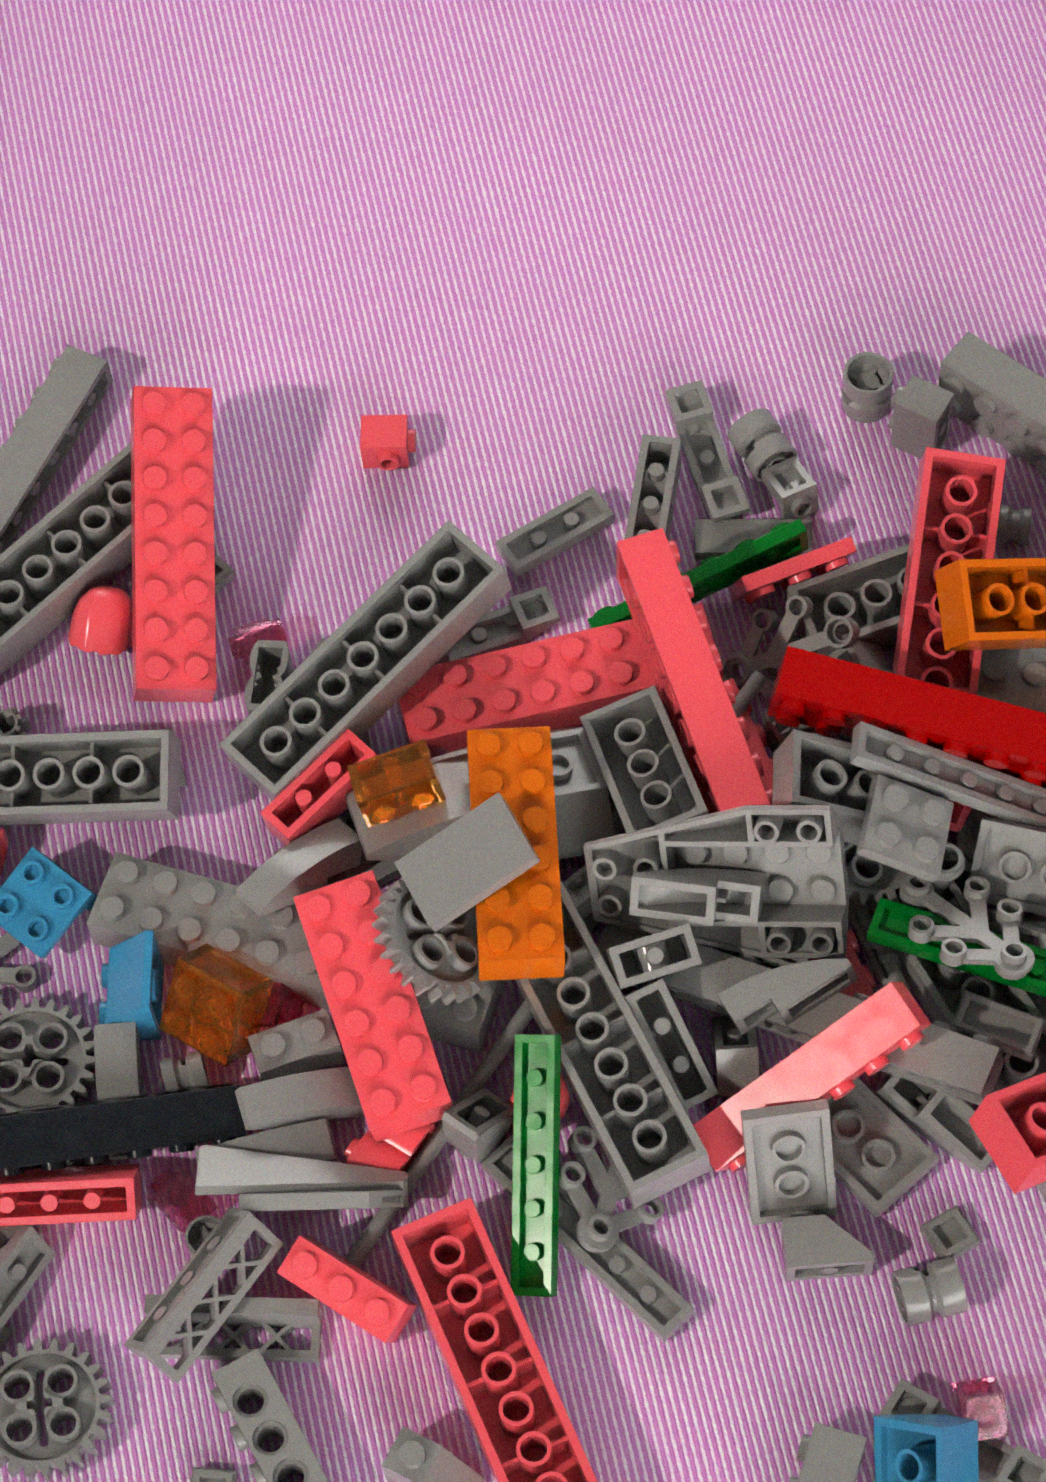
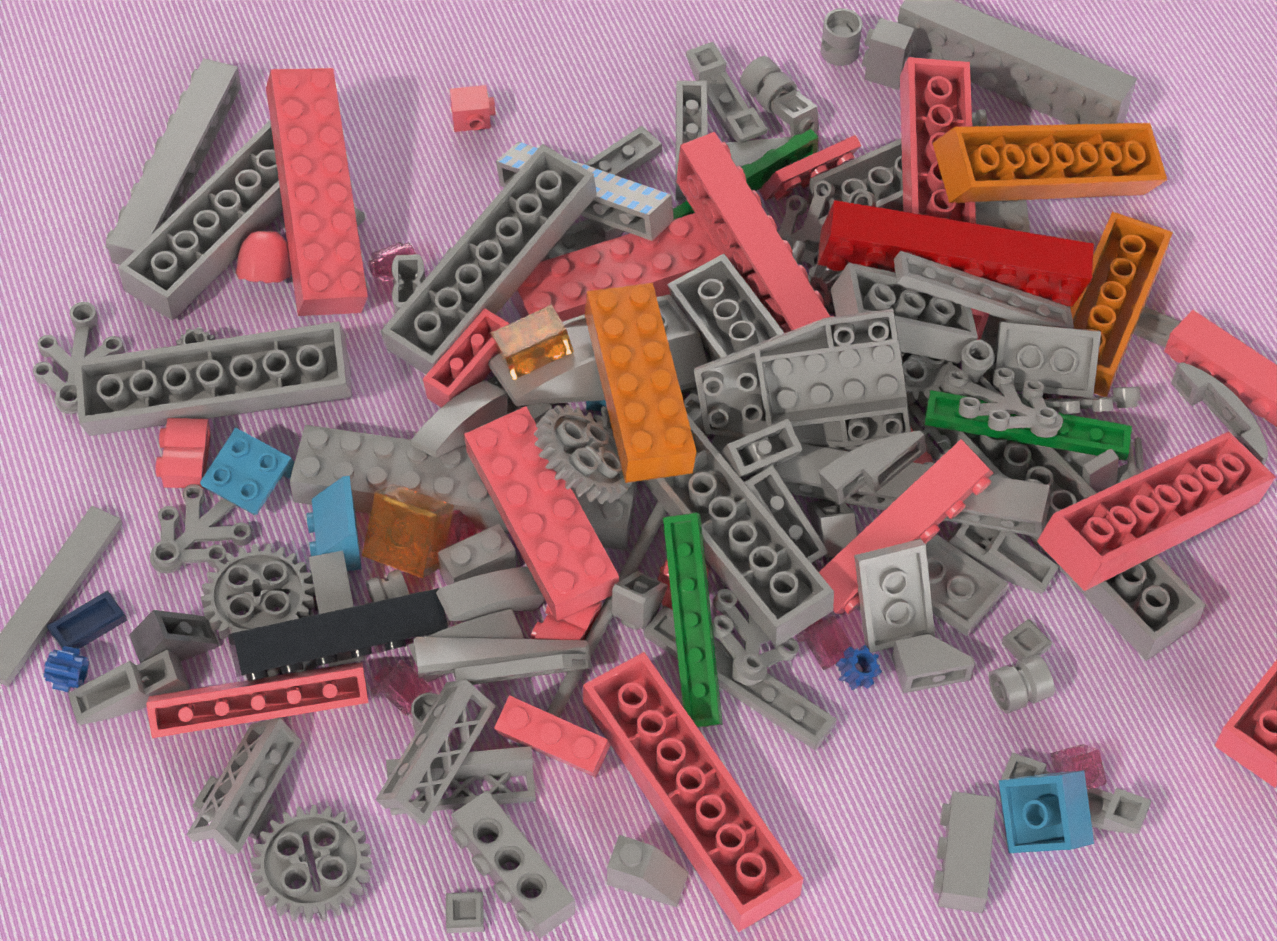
camera: 15 degrees left, 5 degrees down
(467, 862) = (606, 386): light grey tile -> none
(538, 594) = (618, 200): none -> light grey brick
(698, 895) = (790, 398): light grey slope -> none
(701, 1206) = (826, 641): none -> clear pink bracket
(723, 1237) = (865, 660): none -> blue gear
(905, 828) = (946, 329): light grey plate -> none
(1009, 1027) = (1051, 473): light grey tile -> none

